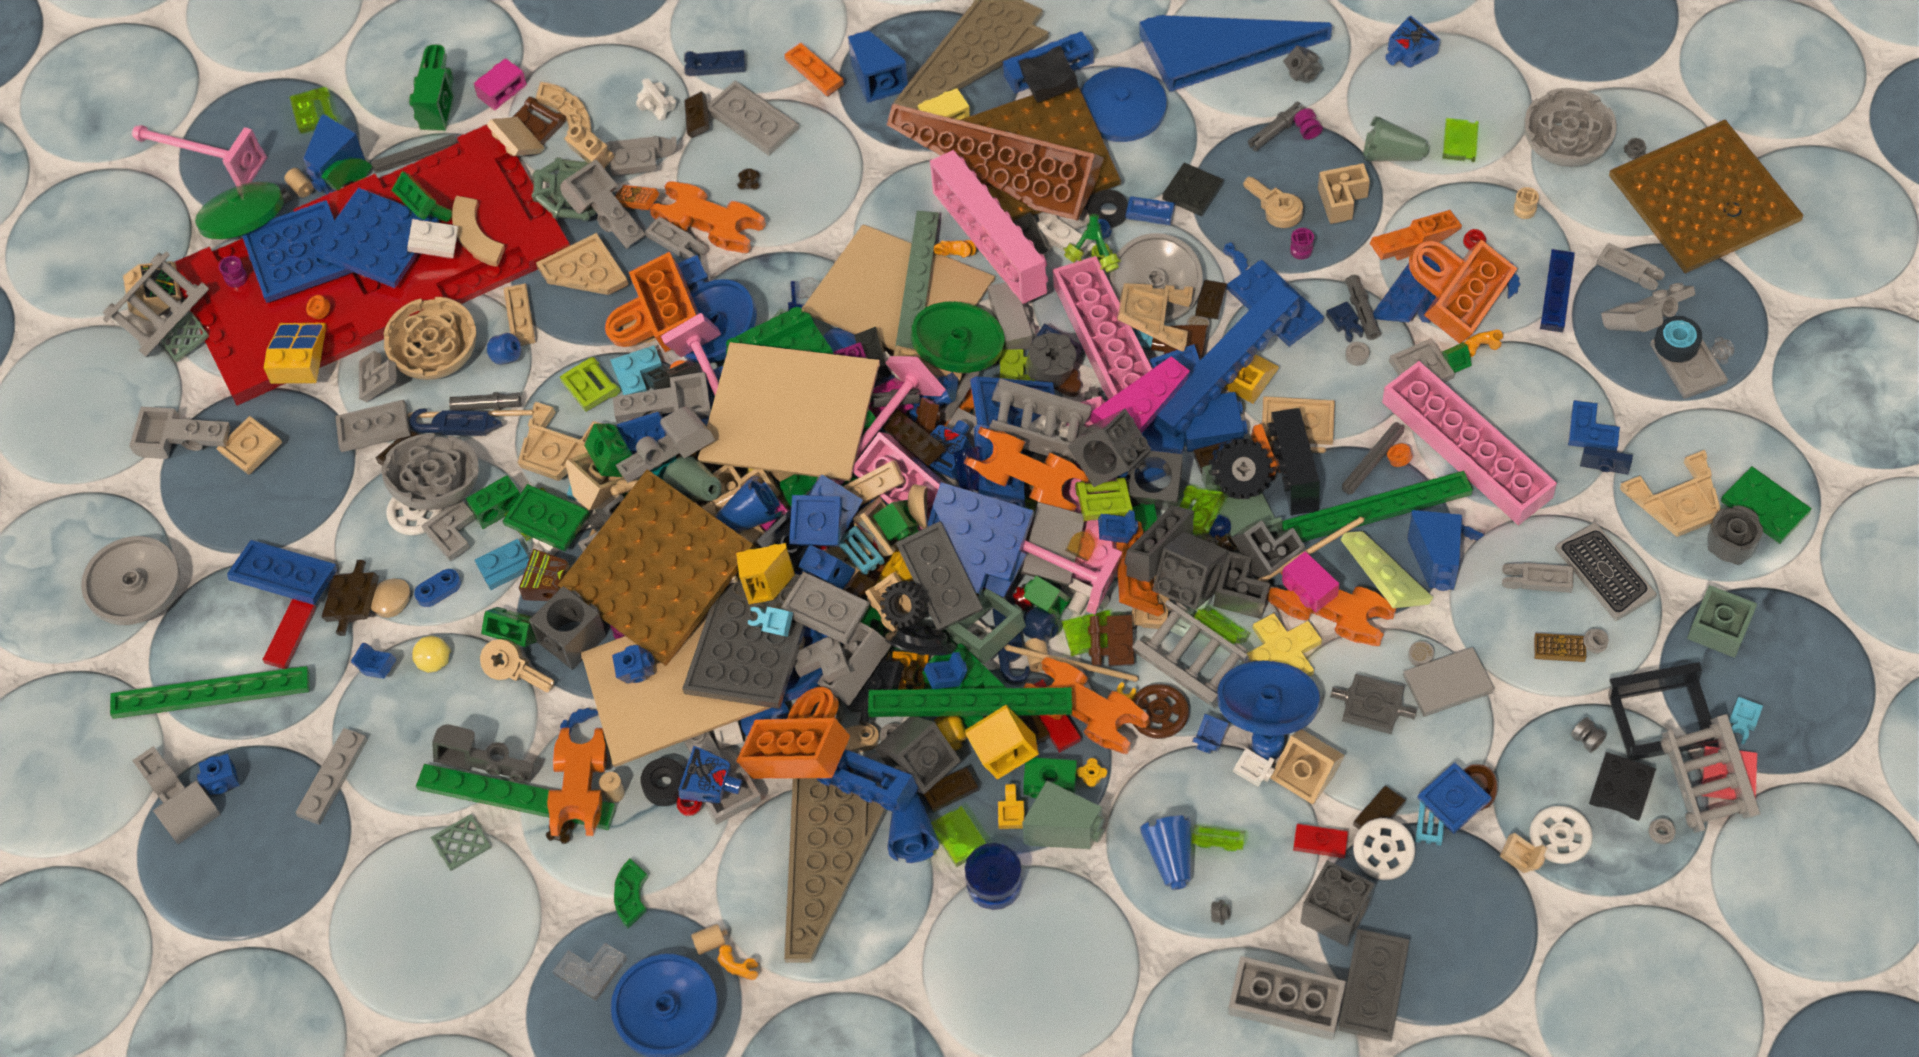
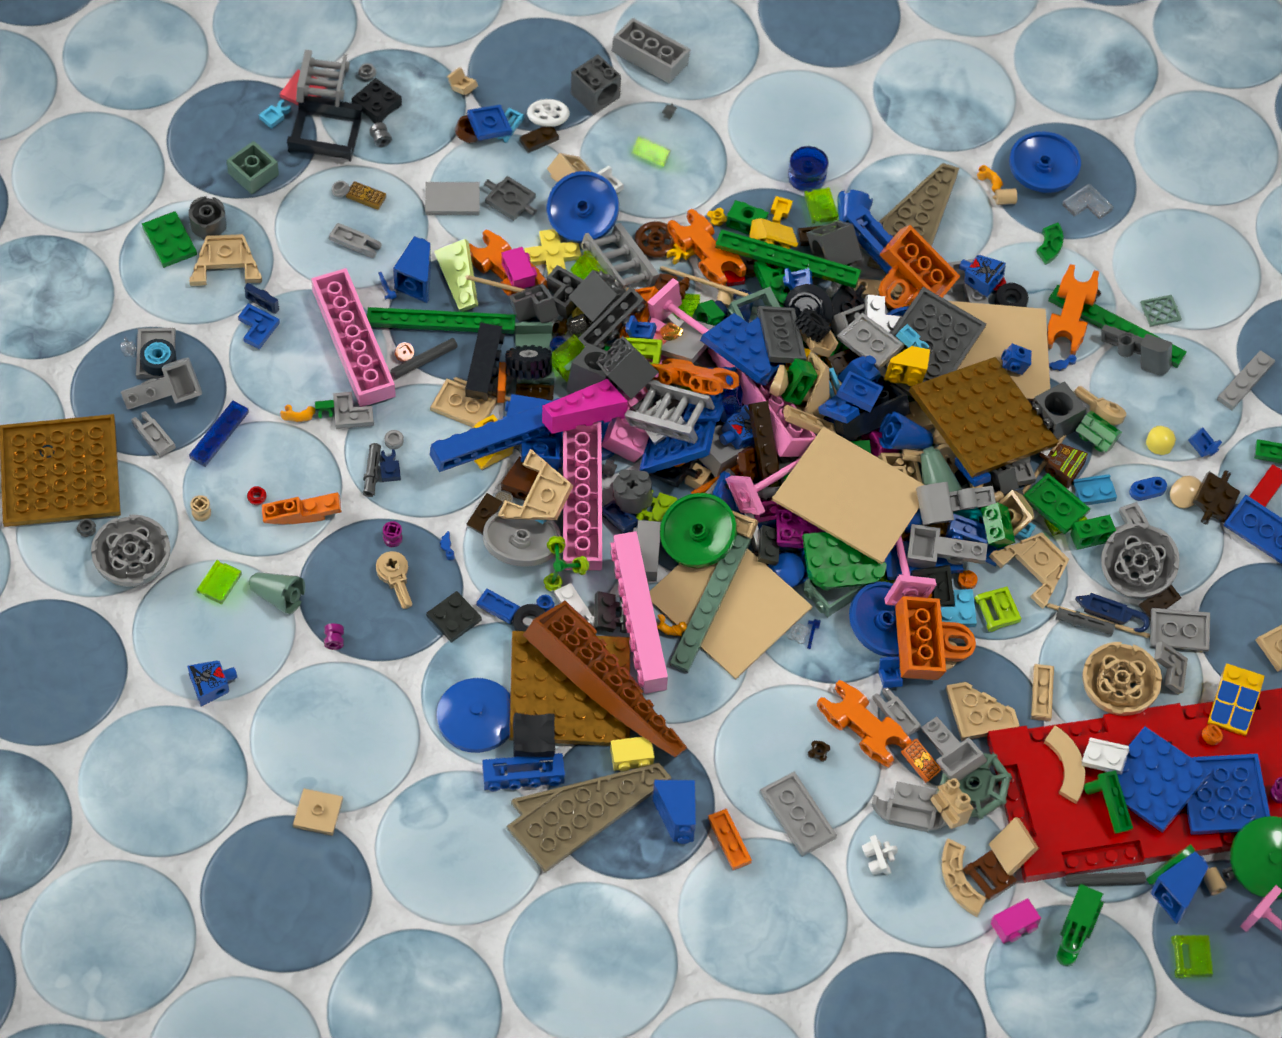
camera: 170 degrees left, 0 degrees up
(504, 348) = (1062, 655): blue head -> none
(611, 787) = (1049, 303): tan piece -> none
(696, 114) = (846, 828): dark brown plate -> none
(714, 62) = (815, 881): dark blue plate -> none
(1062, 820) = (751, 182): sand green slope -> none
(1170, 848) = (685, 153): blue cone -> none
(1206, 47) = (383, 738): blue slope -> none
(1210, 734) = (631, 210): blue bracket -> none
(1256, 282) = (435, 500): blue plate -> none
(1283, 121) = (352, 648): dark grey pin -> none
(1302, 64) = (311, 688): dark grey brick -> none
(1320, 841) = (585, 133): red plate -> none
(1340, 188) = (339, 564): tan brick -> none
(1373, 985) = (593, 40): dark grey plate -> none
(1406, 297) = (326, 467): blue bracket -> none
(1420, 653) = (461, 220): light grey tile -> none
(1462, 287) = (290, 444): orange brick -> none
(1513, 285) = (245, 456): blue piece -> none
(1557, 814) = (431, 84): white plate -> none
(1605, 571) = (306, 232): tile -> none

